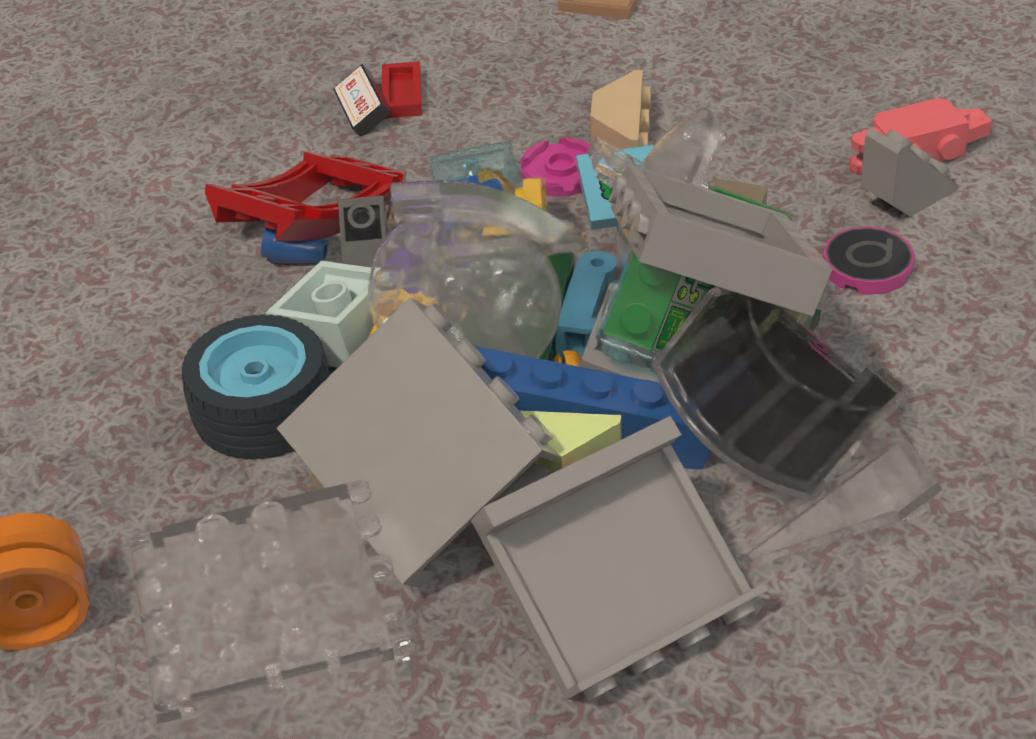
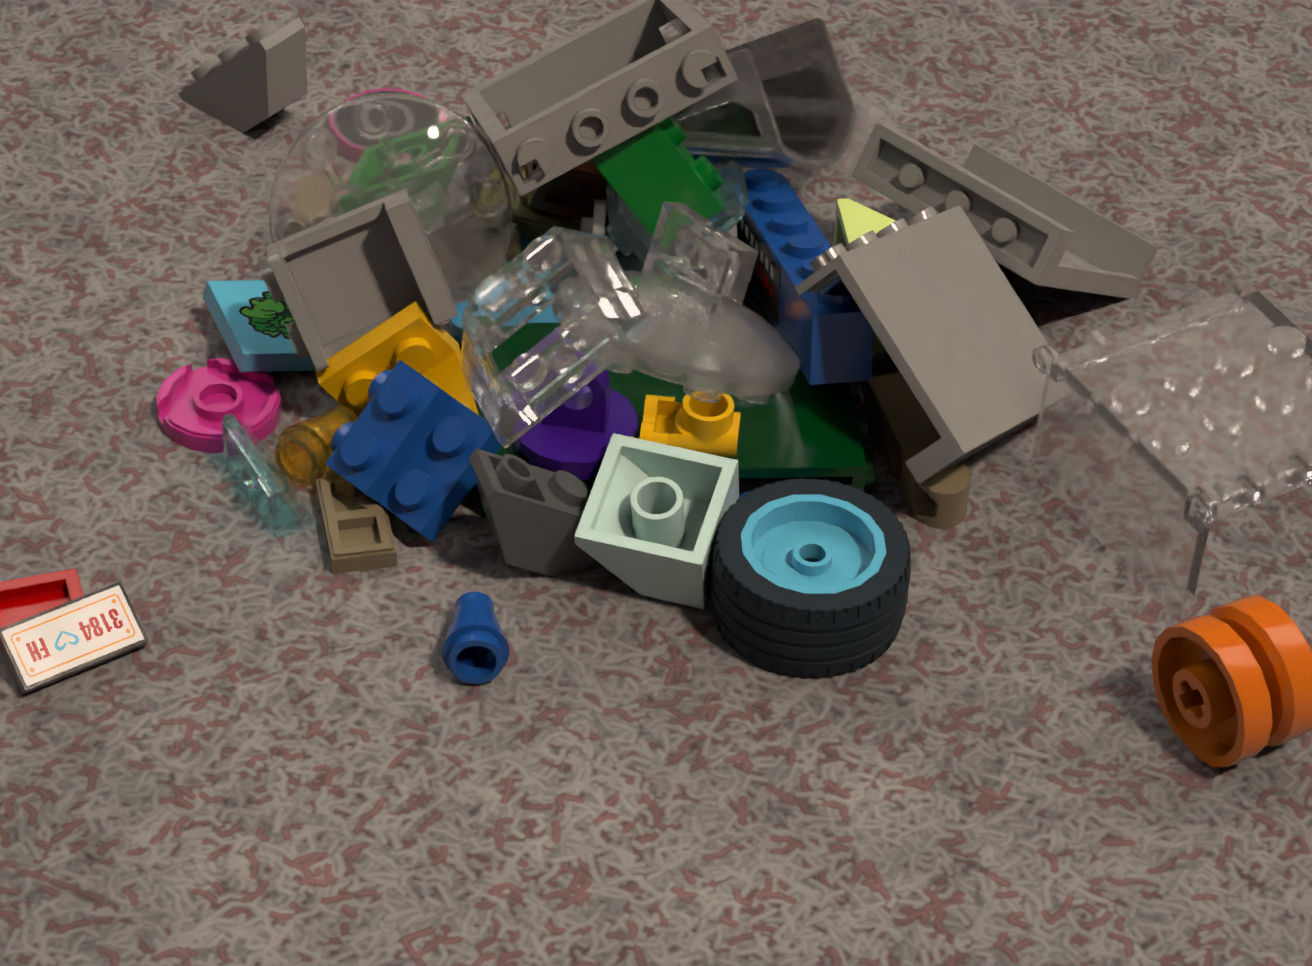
camera: 110 degrees left, 0 degrees up
(280, 197) = (469, 570): red wedge -> none
(564, 153) = (355, 276): none -> light grey panel
(622, 112) = (118, 342): tan slope -> none
(929, 125) = (139, 89): coral hinge -> none

